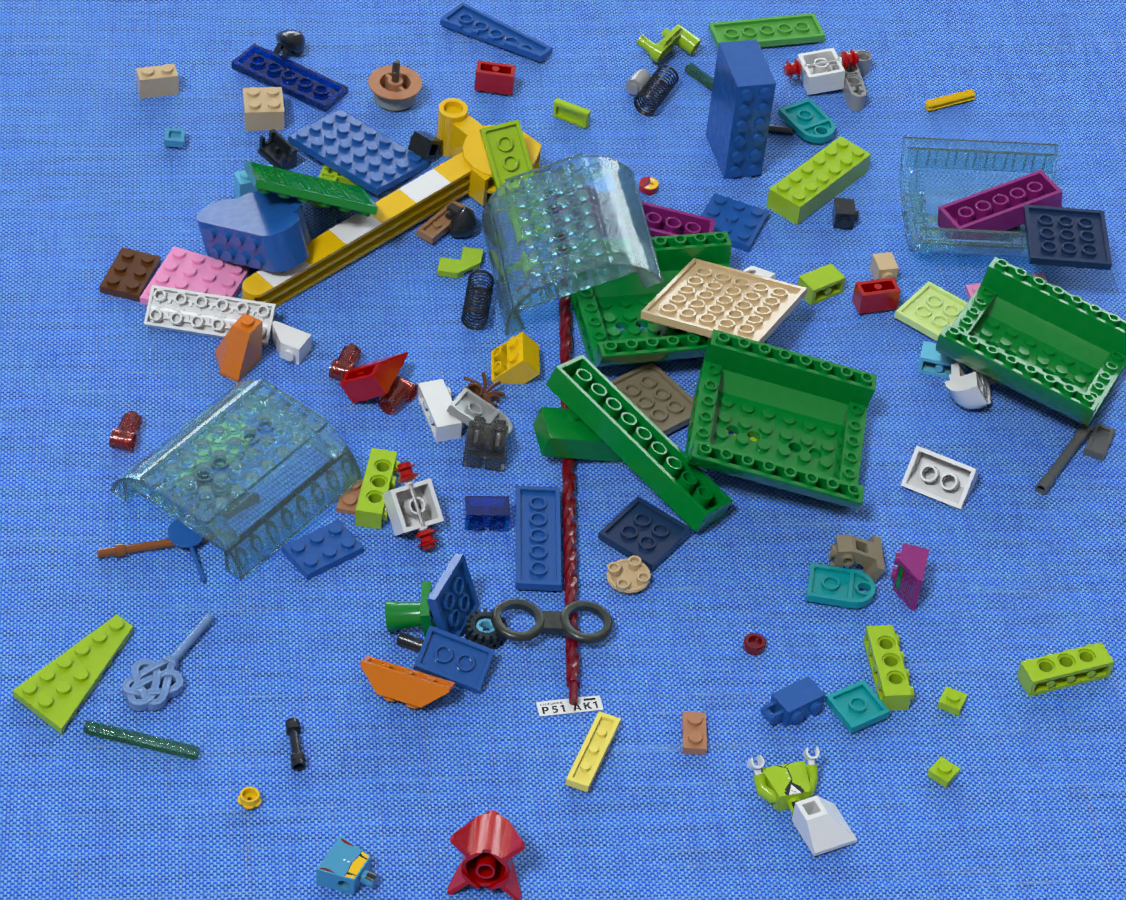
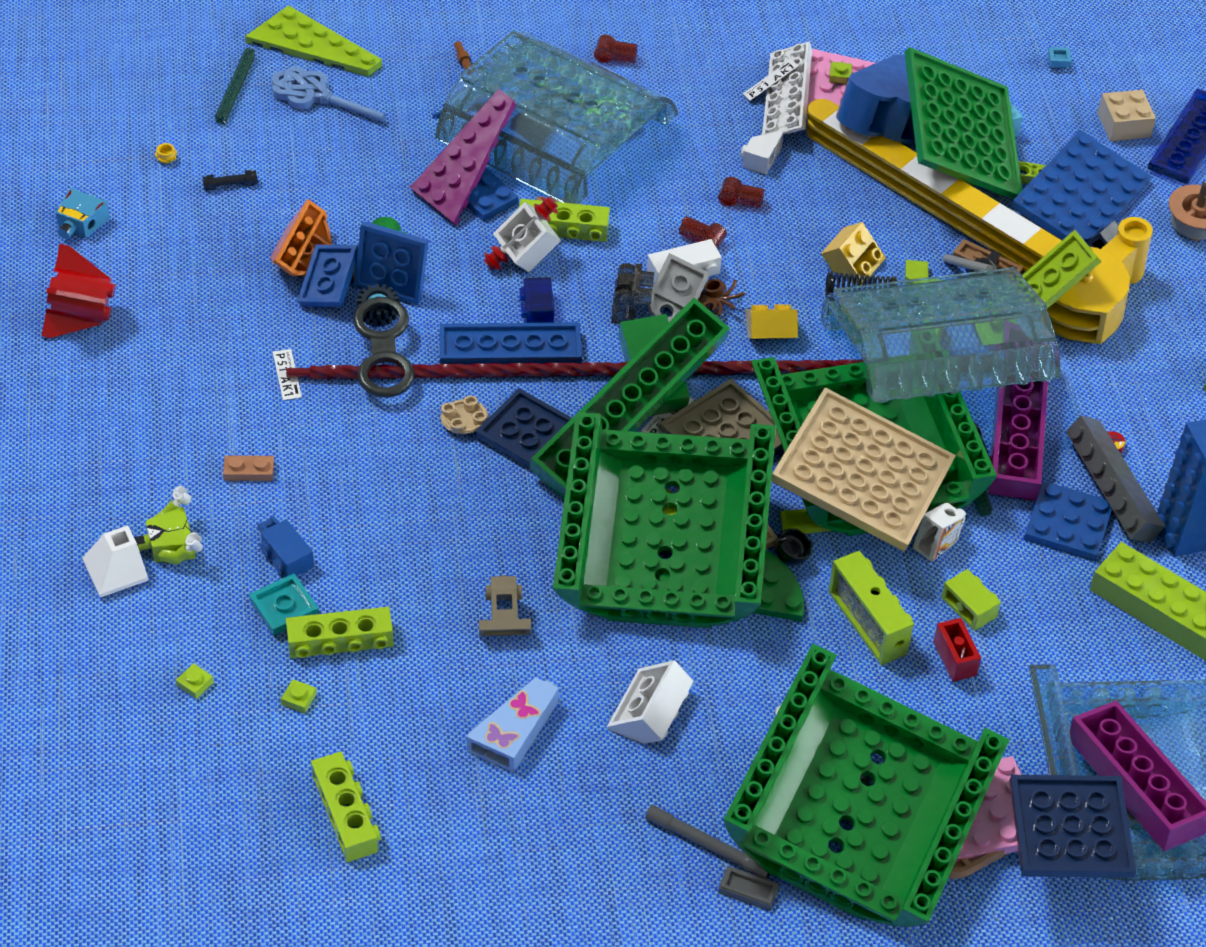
camera: 90 degrees right, 5 degrees up
(130, 274) = (844, 40): reddish brown plate -> none
(157, 81) = (1142, 37): tan brick -> none
(189, 275) = (840, 72): none -> lime plate
(191, 324) = (770, 79): none -> white sticker
(240, 348) = (739, 112): orange slope -> none
(278, 151) = (1062, 133): black hinge -> none
(311, 551) = (461, 164): none -> magenta wing
(372, 378) = (715, 203): red slope -> none
(430, 299) = (853, 252): none -> yellow slope
(463, 224) = (966, 263): none -> light grey bar
(593, 751) = (219, 385): light yellow plate -> none
(697, 185) = (1115, 479): none -> dark grey brick
(754, 644) = (375, 522): dark red tile -> none
(839, 586) = (463, 594): teal plate -> none
(844, 213) = (1113, 629): black brick -> none
(844, 333) = (870, 607): none -> lime brick
(883, 266) = (1015, 666): tan brick -> none
(909, 573) = (469, 653): magenta slope -> none
(930, 310) = (957, 707): yellowish green plate -> none
(971, 558) = (514, 726): none -> light blue slope

